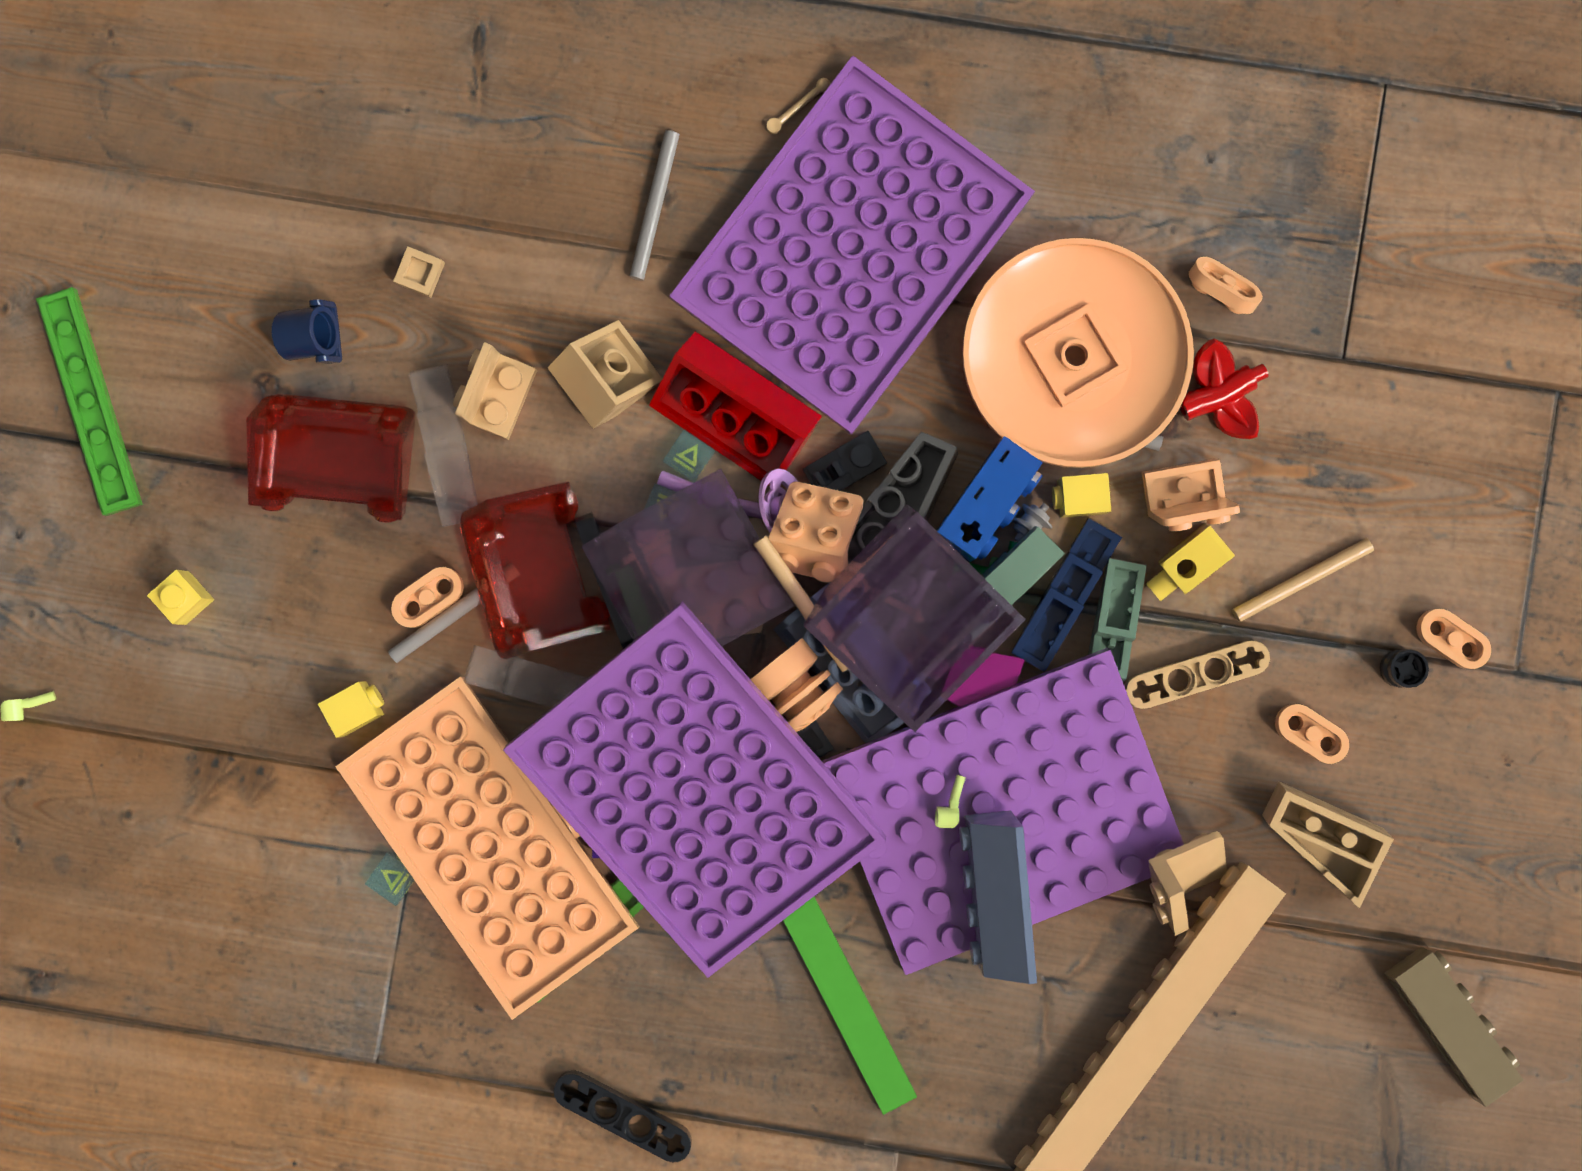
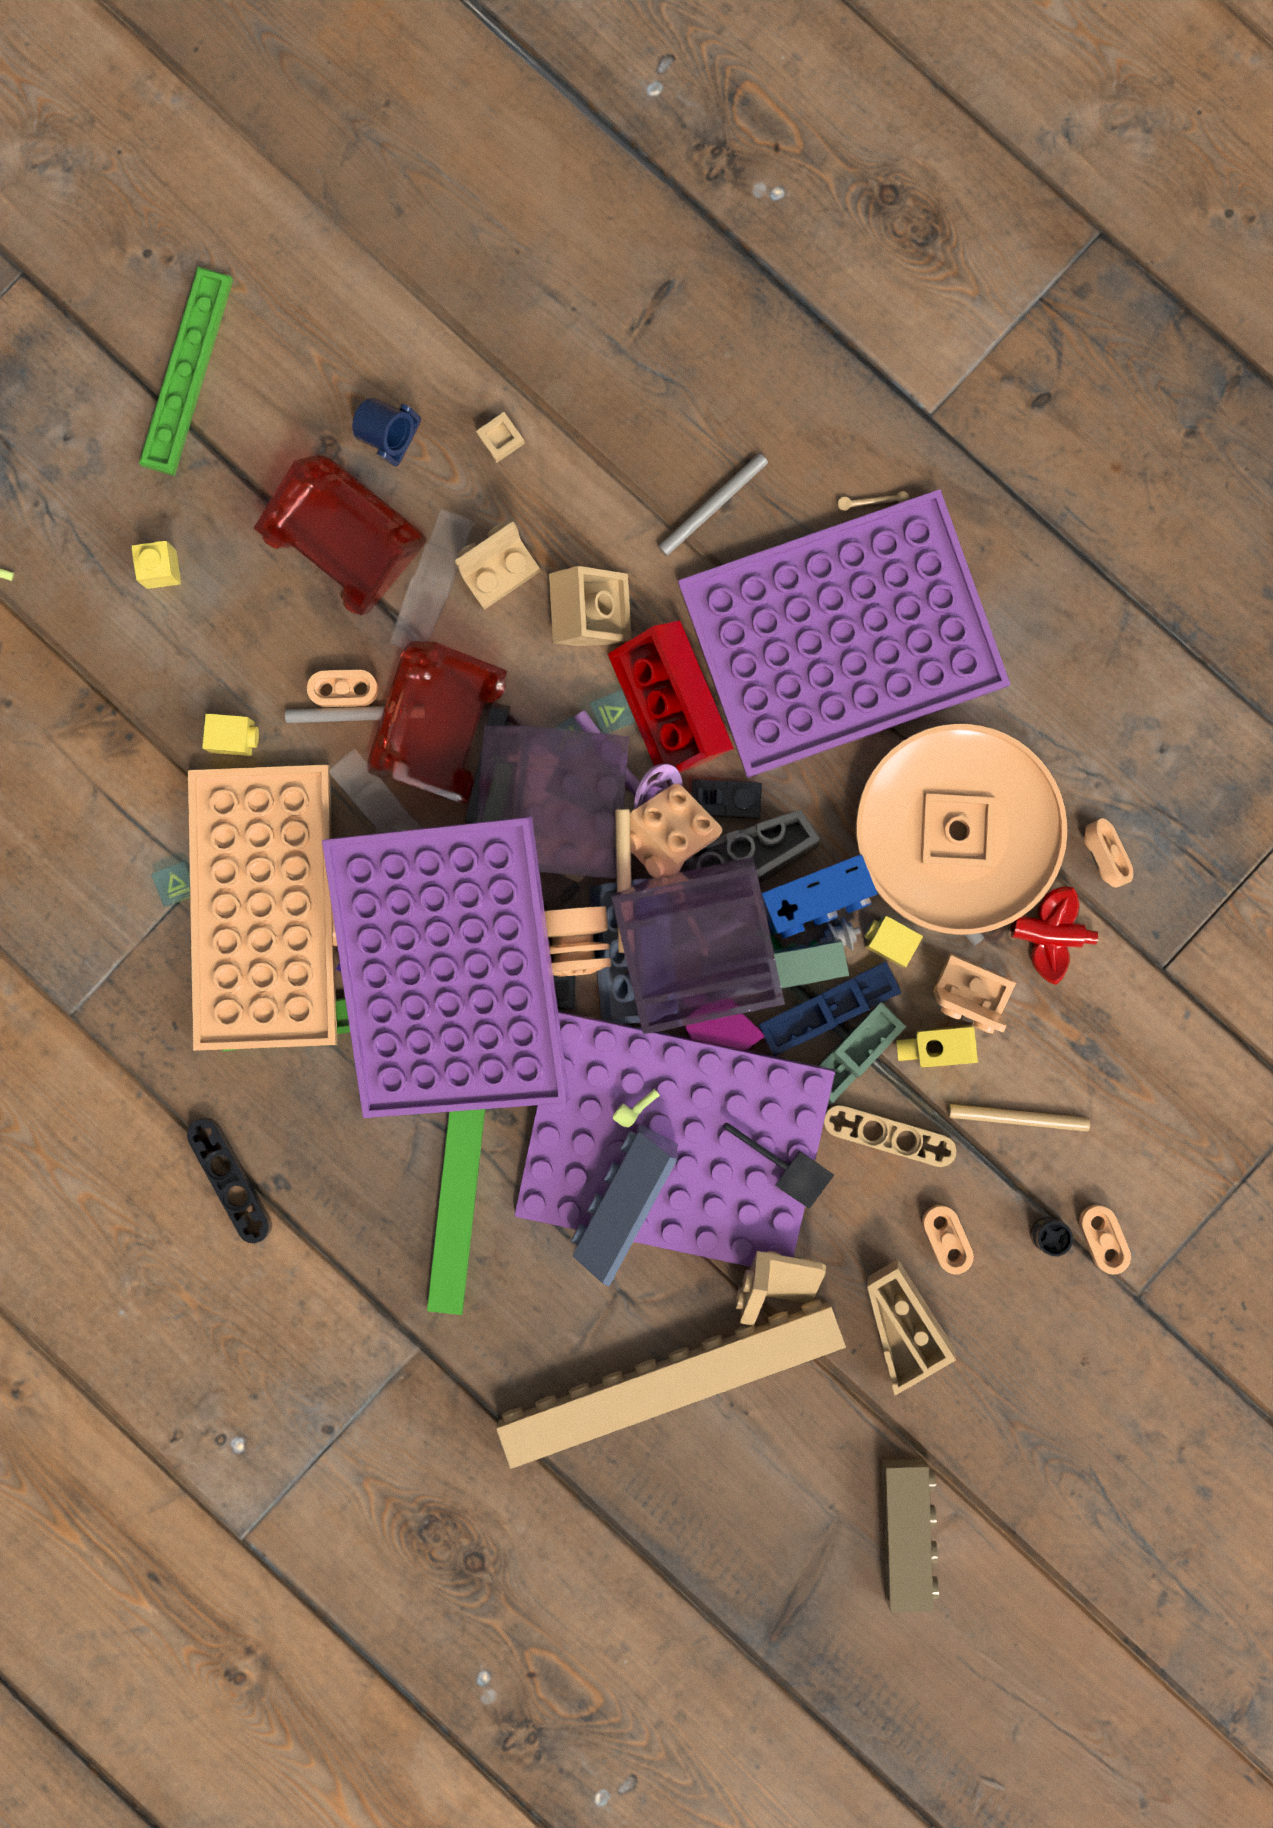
camera: 30 degrees right, 0 degrees up
(1145, 766) = (802, 1178): none -> black piece

